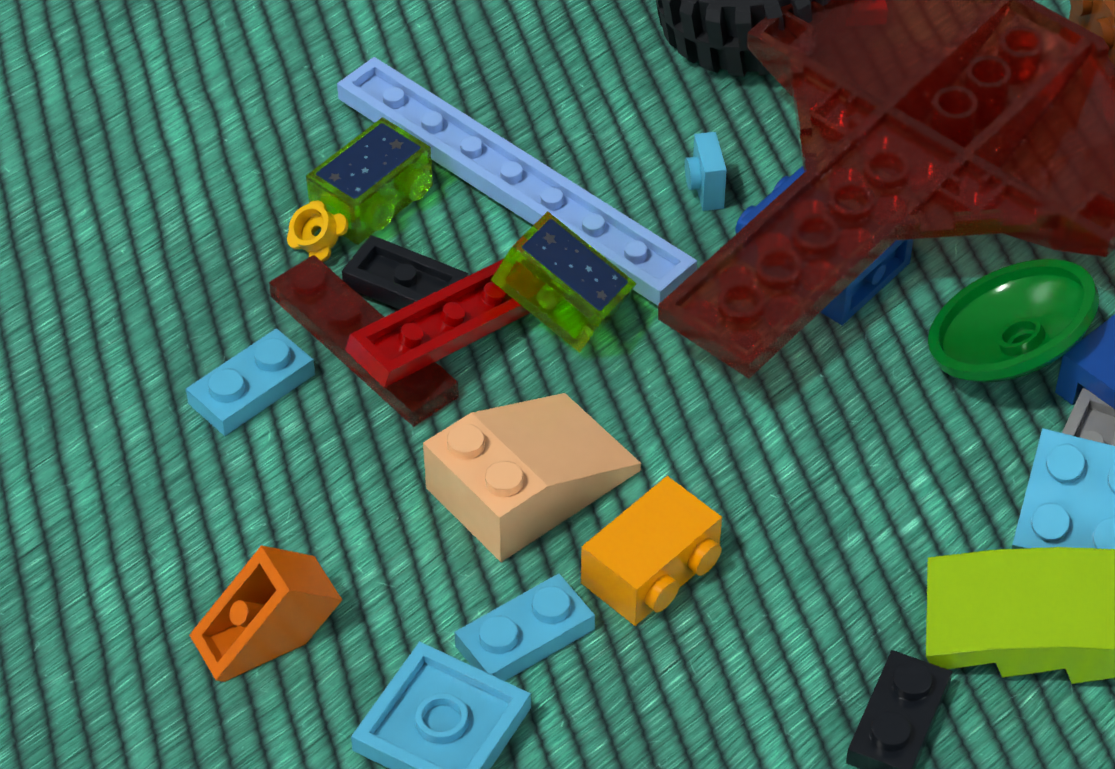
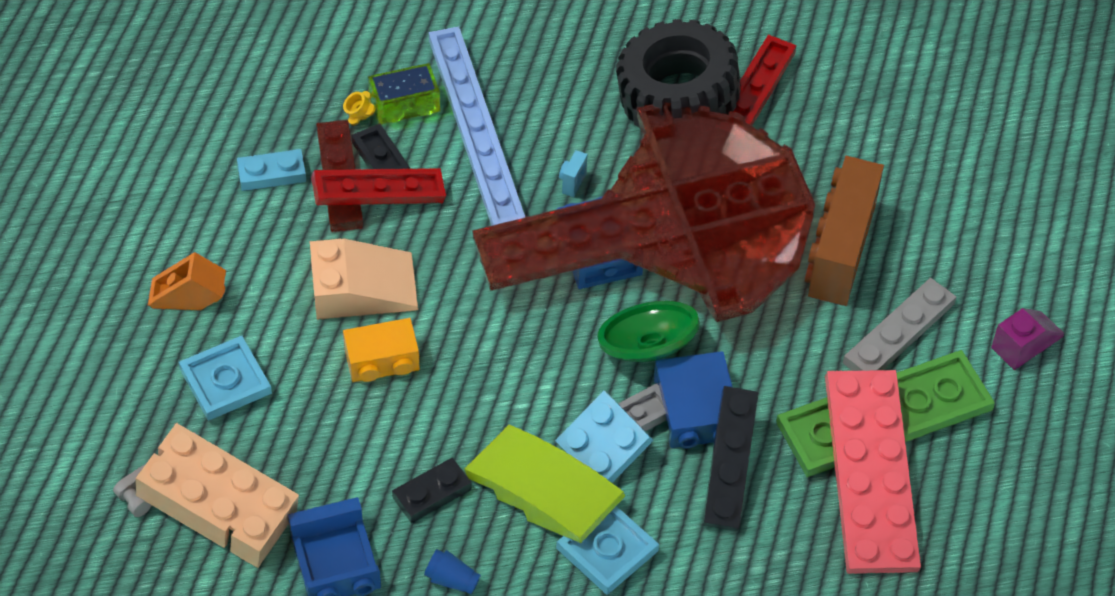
camera: 30 degrees right, 5 degrees up
(525, 629) = (298, 357): medium azure plate -> none
(563, 281) = (446, 195): clear neon green brick -> none

